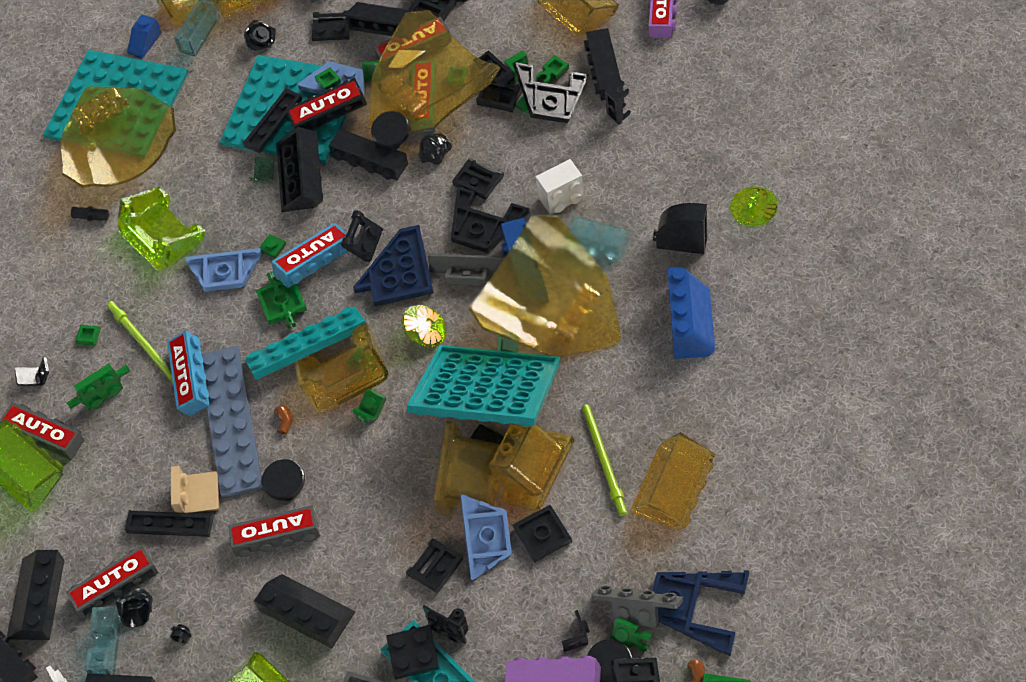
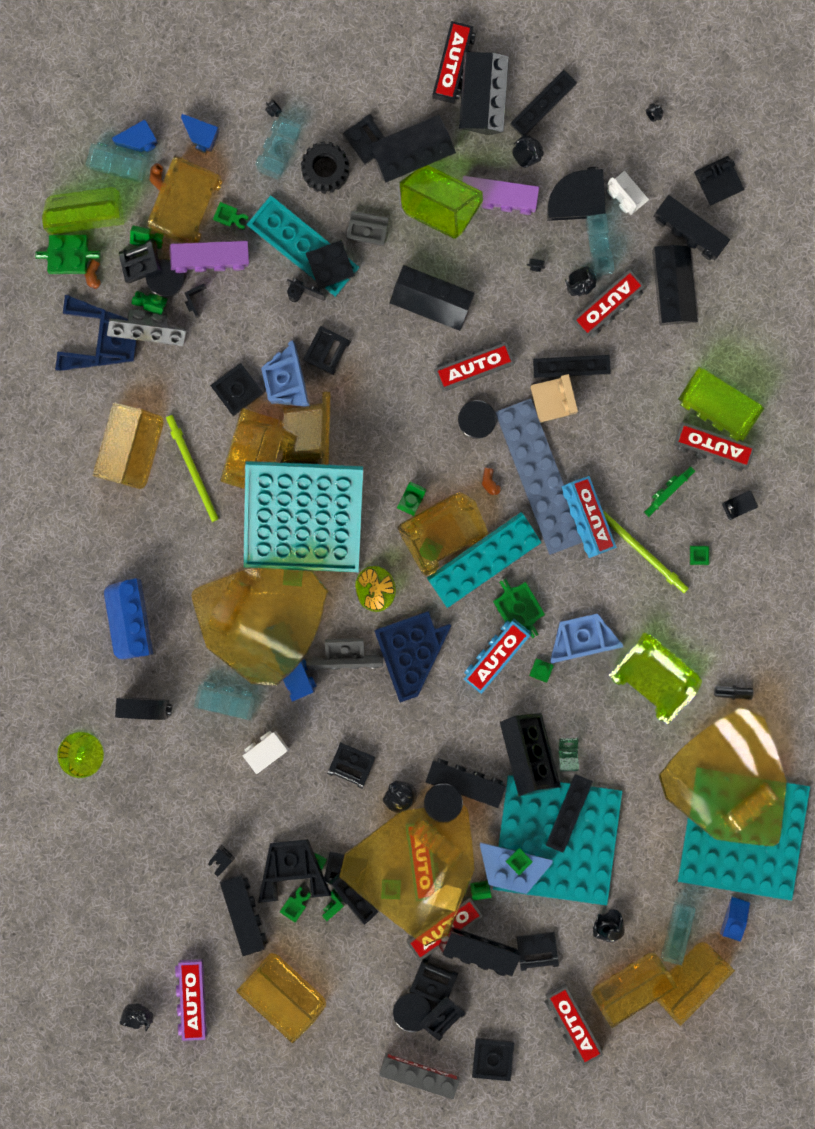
camera: 165 degrees right, 30 degrees up
(327, 105) = (515, 829): brick -> none
(367, 237) = (451, 682): black plate -> none
(478, 228) = (342, 705): black wing -> none

